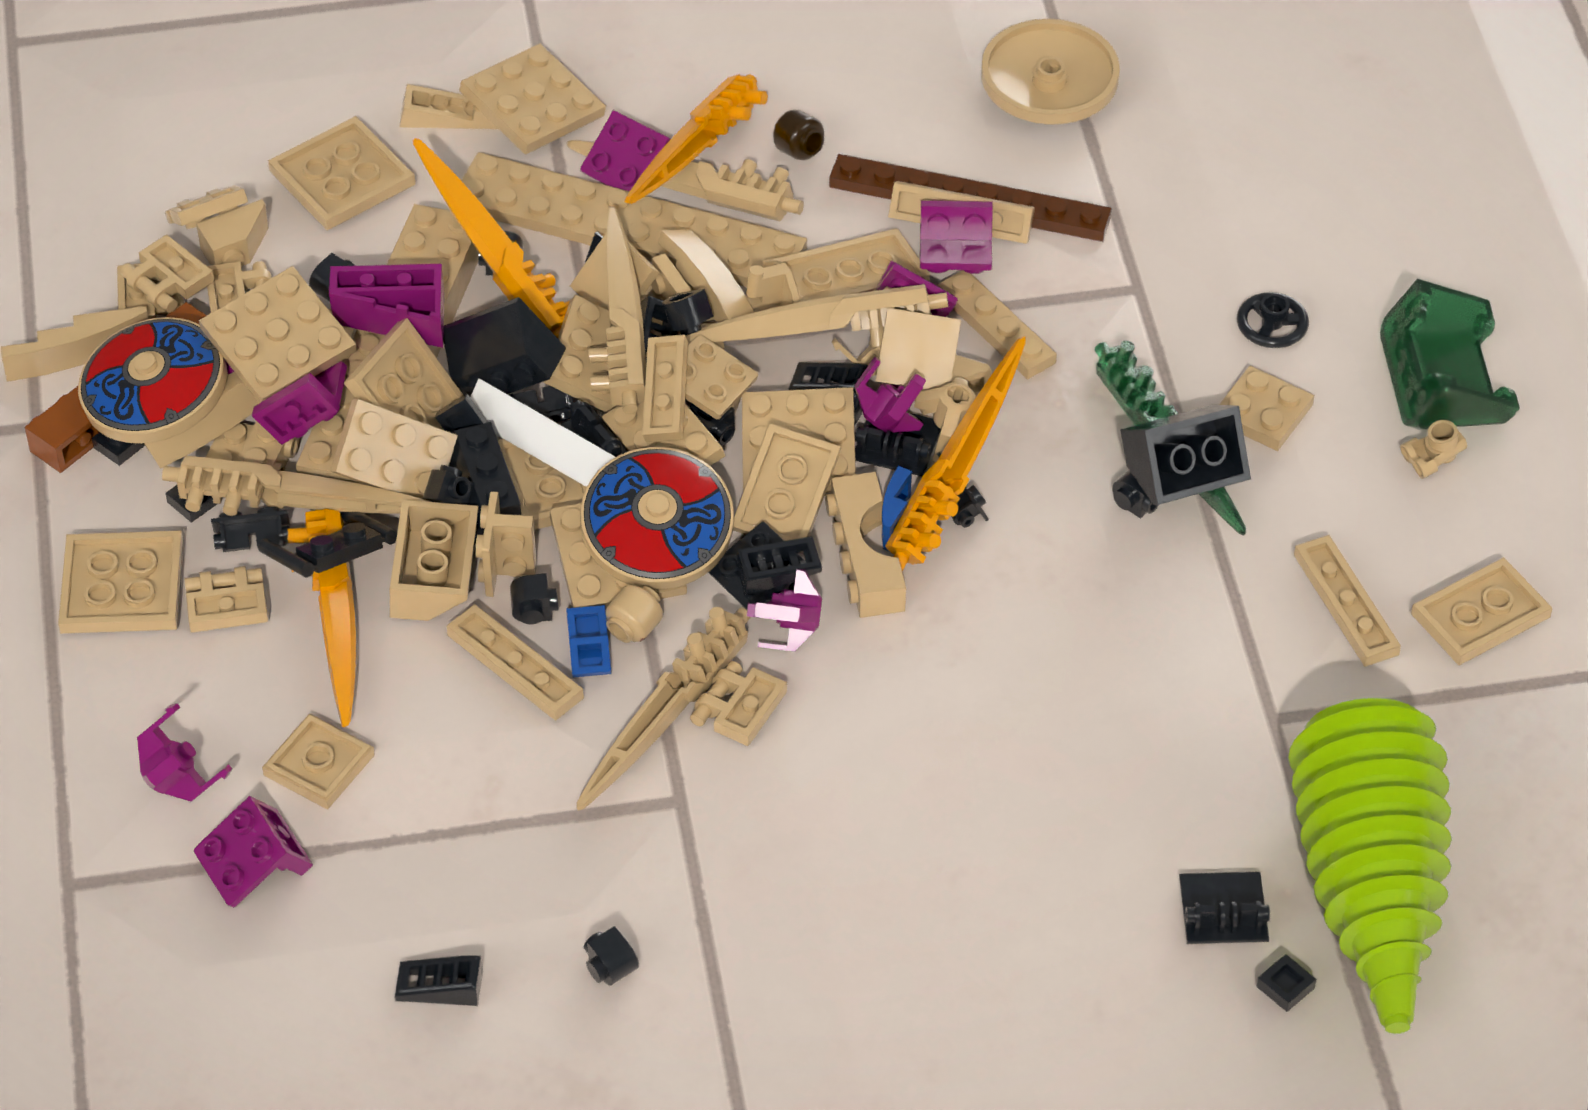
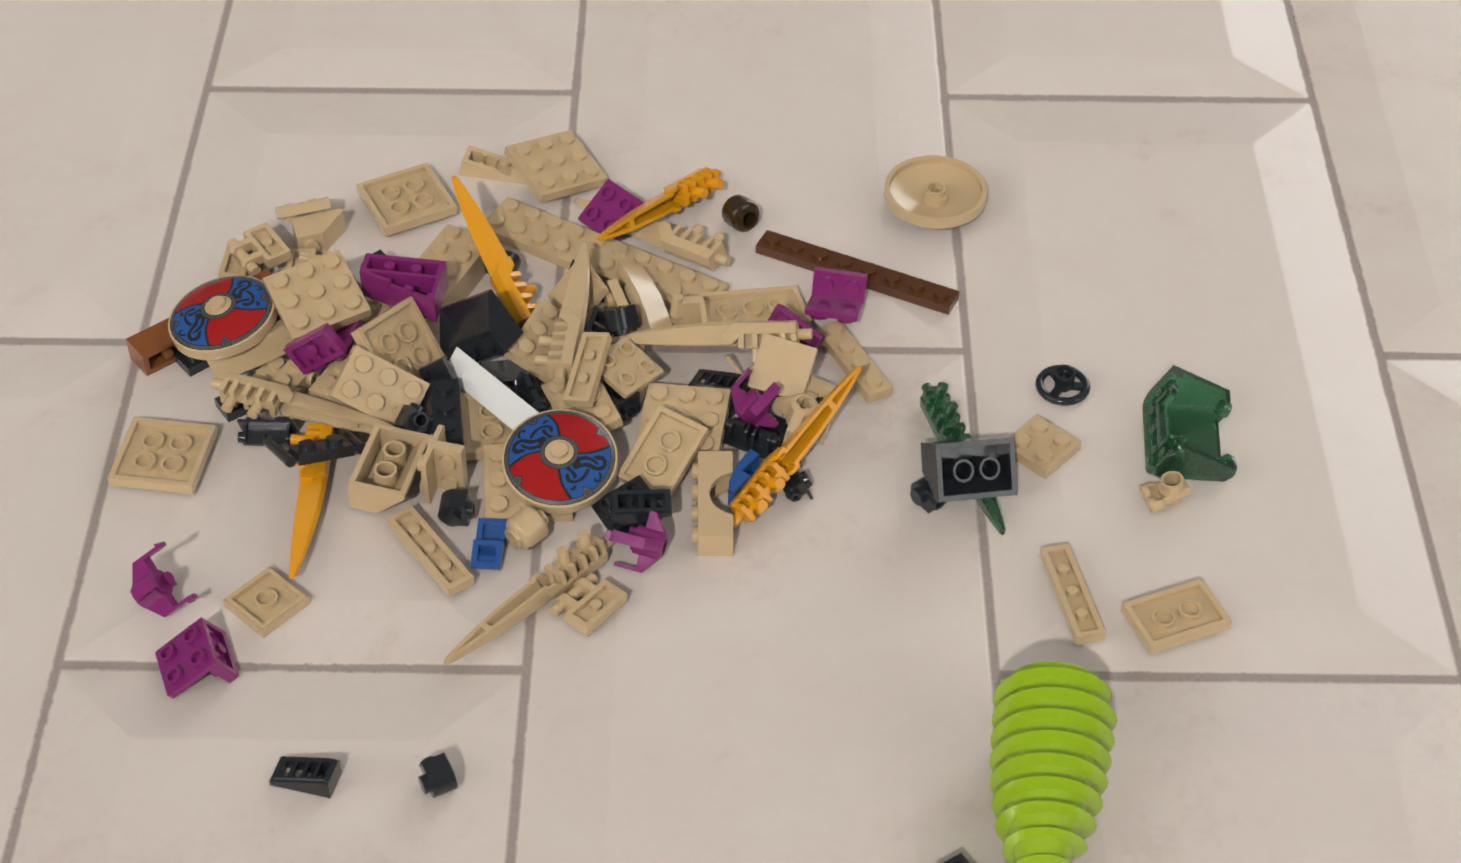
camera: 10 degrees right, 5 degrees down
(66, 346) = (168, 290): tan slope -> none
(225, 599) = (233, 478): tan plate -> none
(1009, 219) = (879, 289): tan plate -> none
(1224, 907) = (922, 810): black hinge -> none

